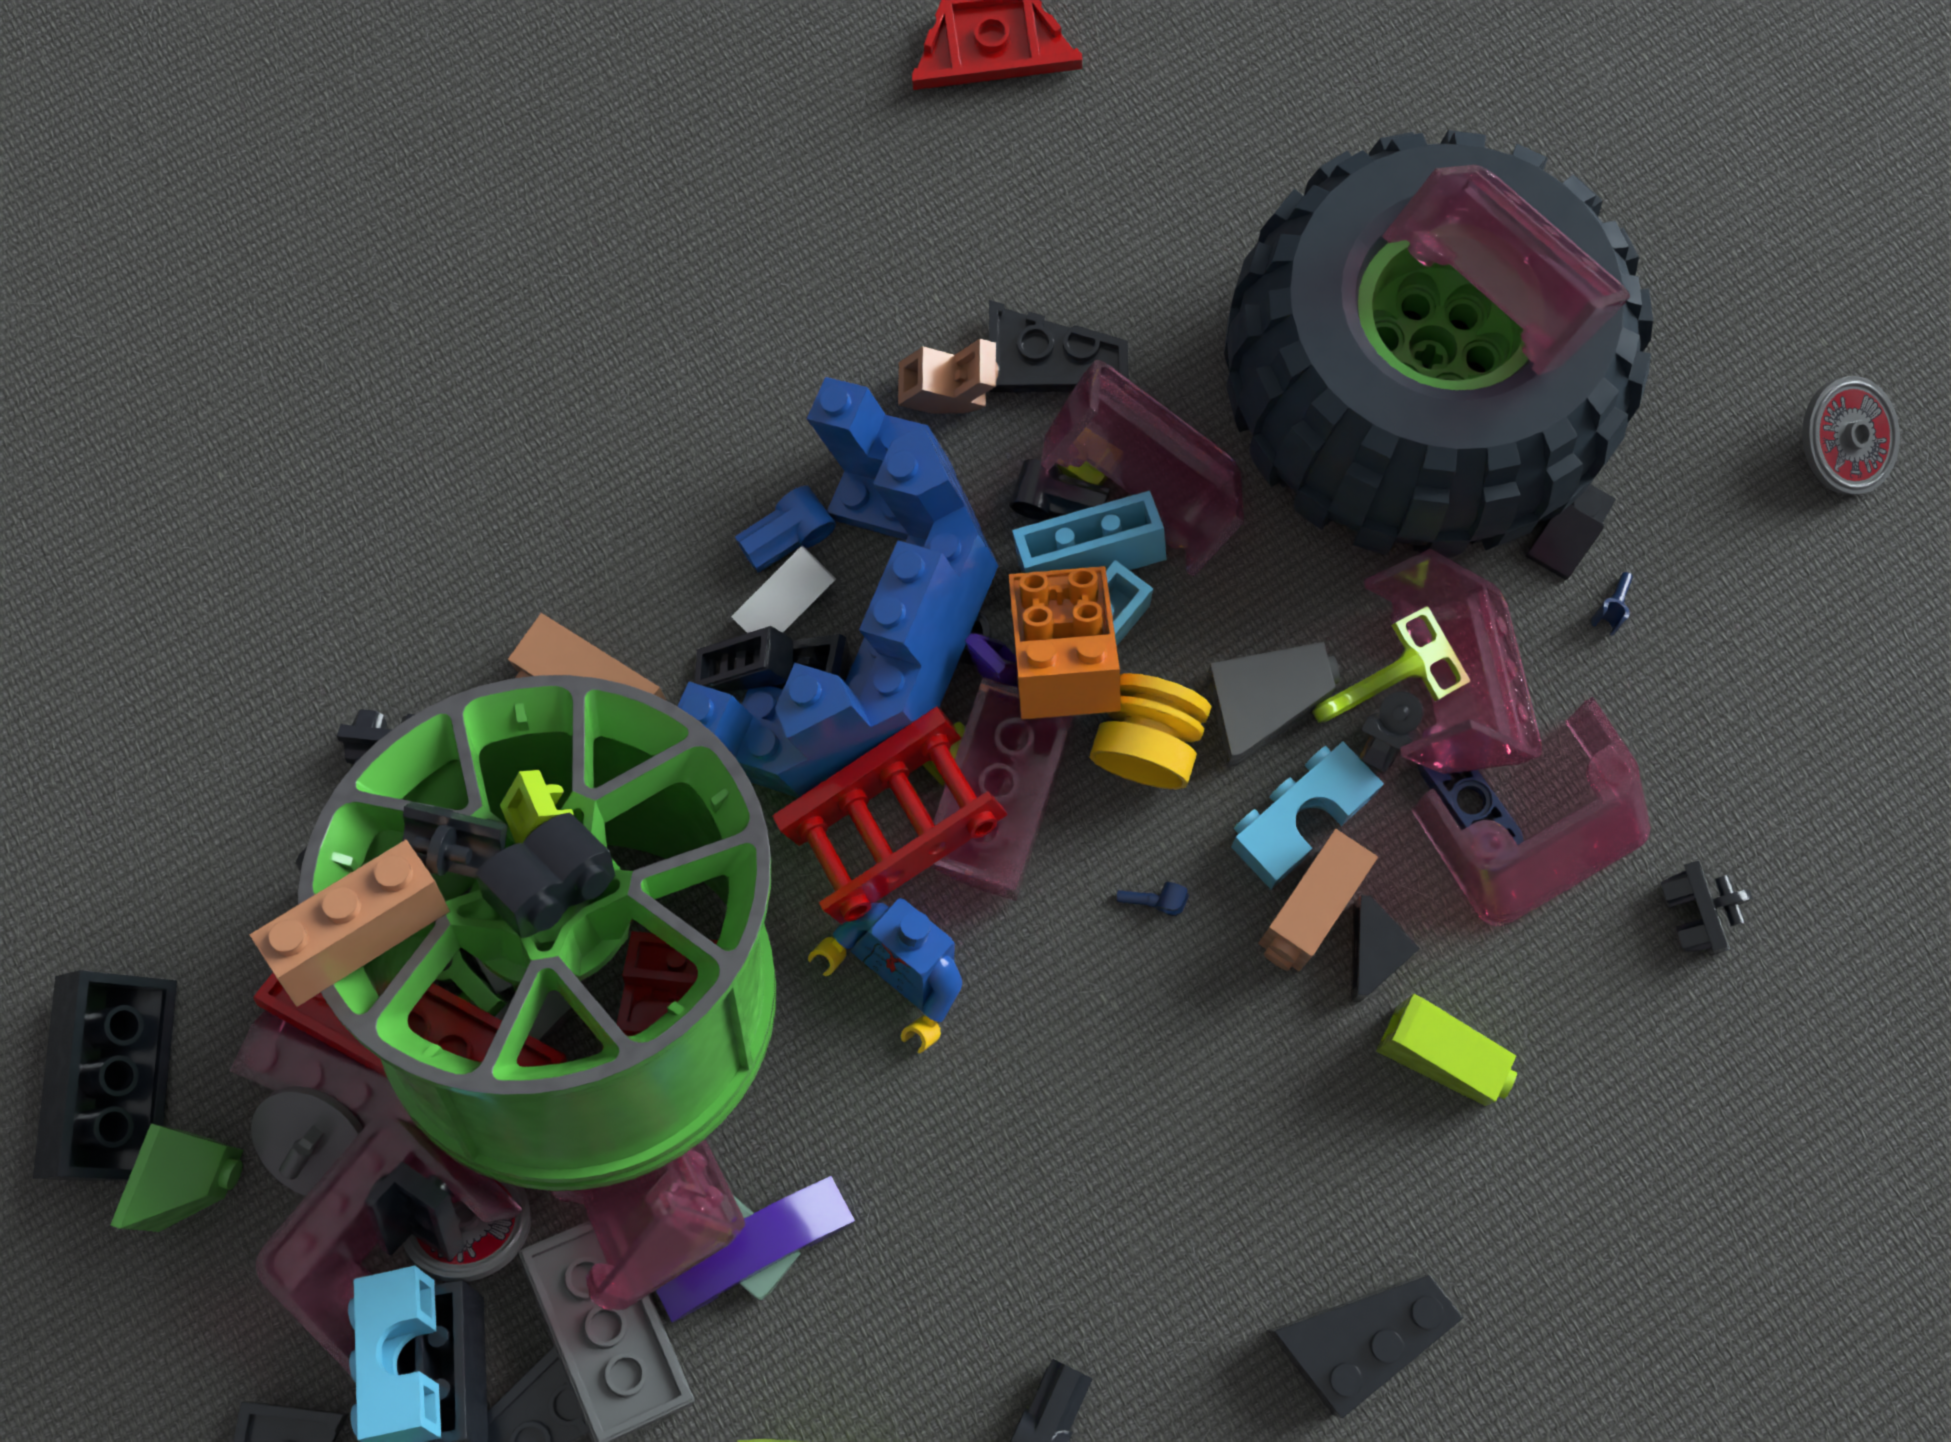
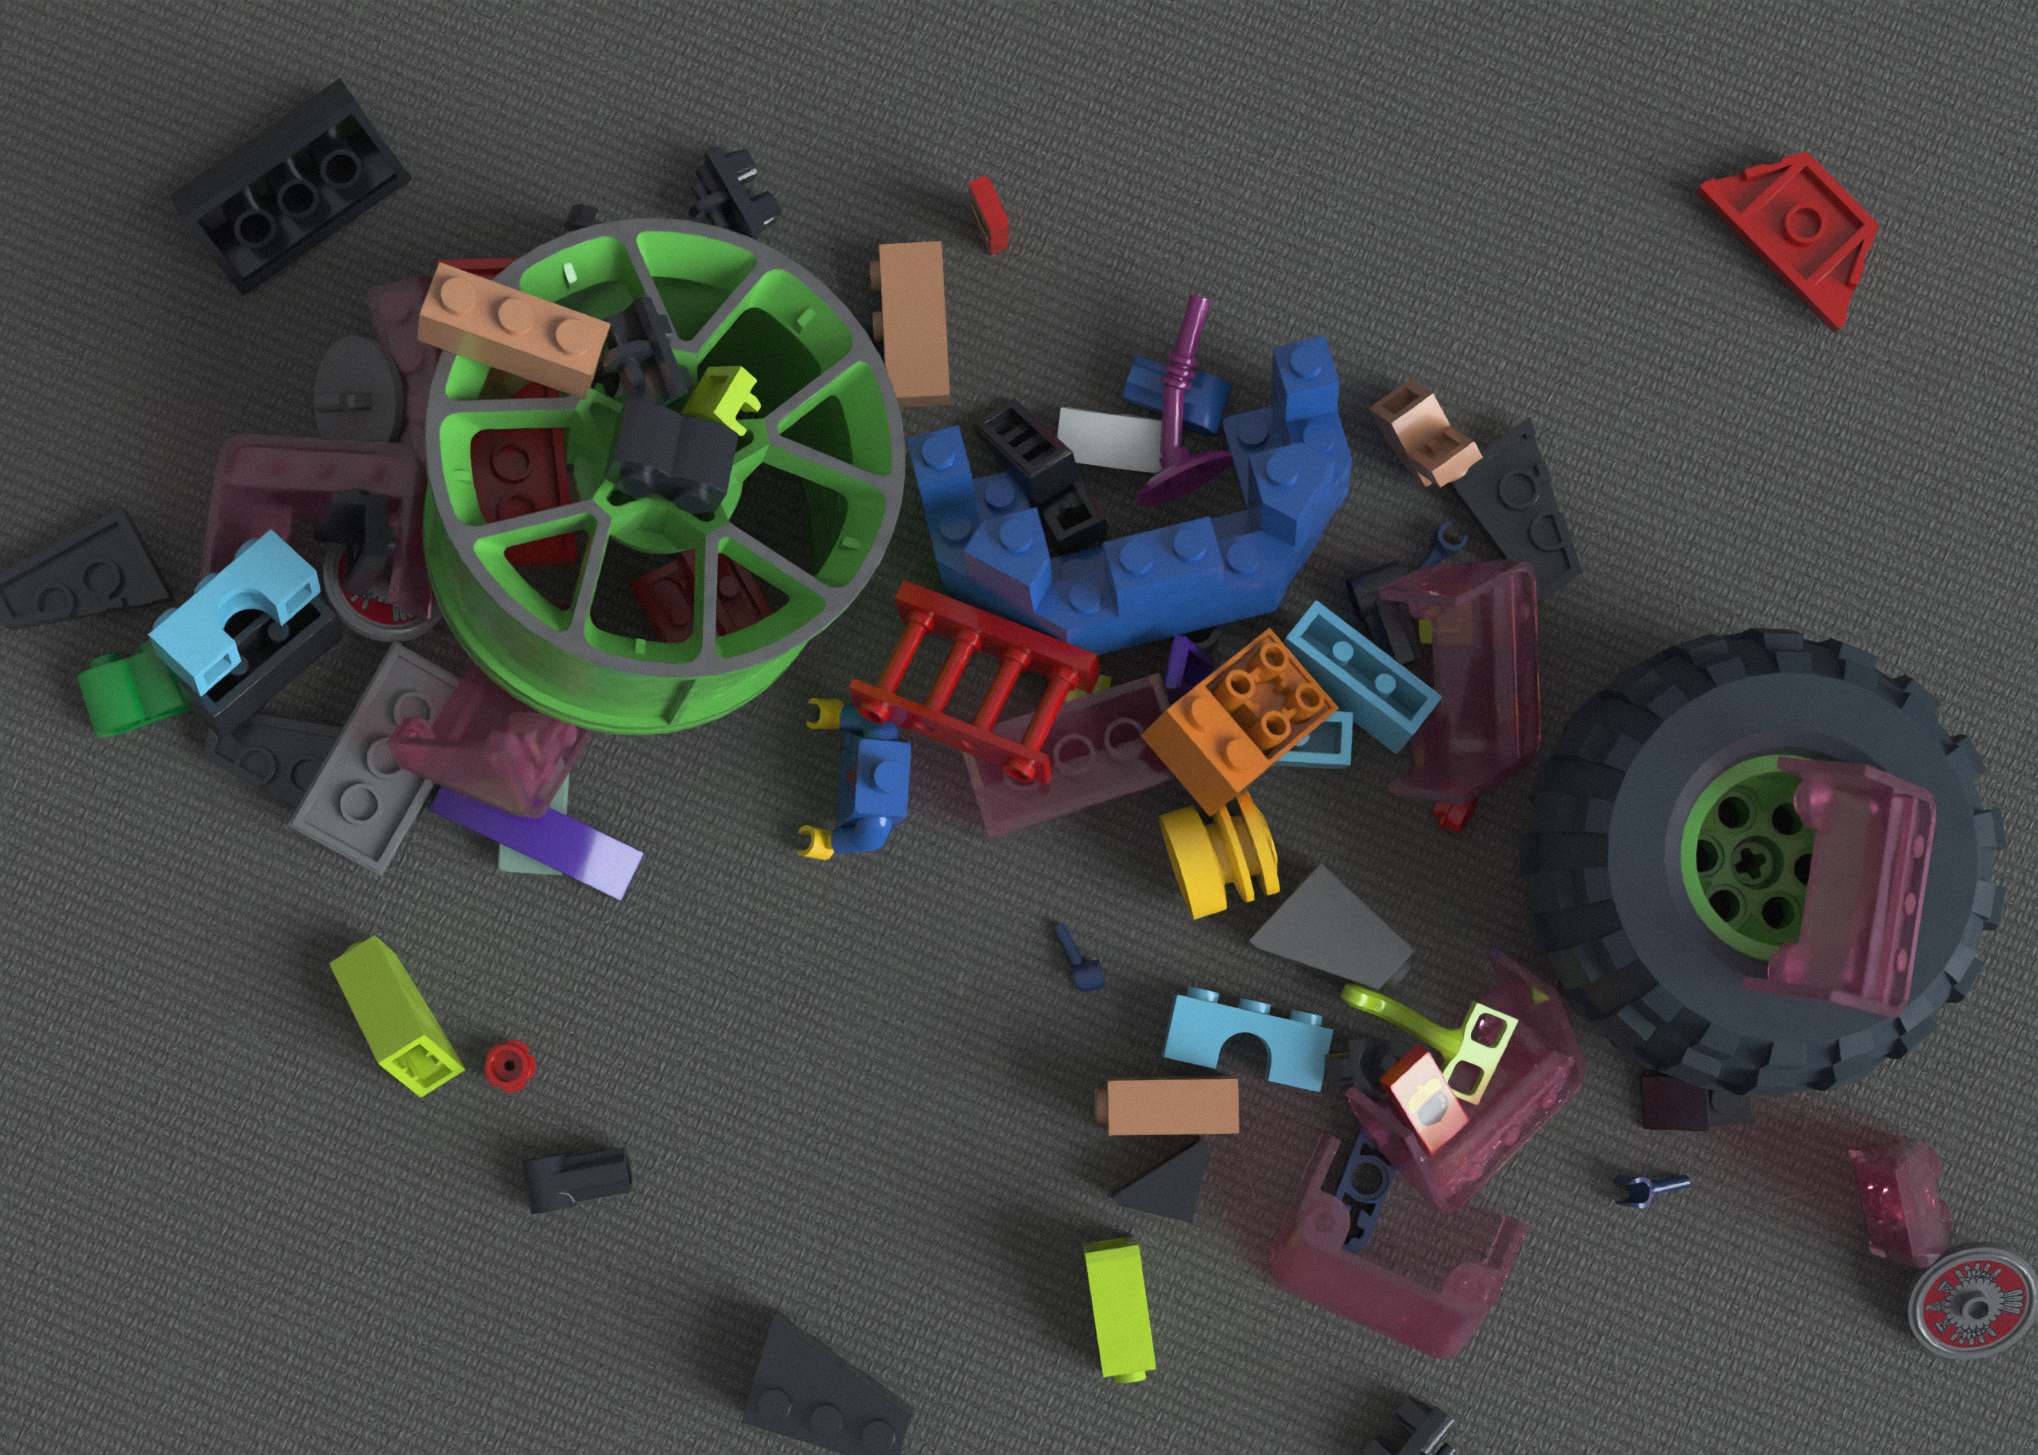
camera: 50 degrees right, 10 degrees up
(175, 1179) = (255, 312): bright green slope -> none
(549, 565) = (989, 214): none -> red tile
(842, 561) = (1180, 469): none -> magenta dish
(935, 1412) = (495, 1068): none -> red plate
(1036, 426) = (1440, 548): none -> dark blue hand
(1238, 549) = (1453, 815): none -> red plate
(1437, 705) = (1424, 1099): none -> tile
(1744, 434) = (1902, 1201): none -> clear pink slope

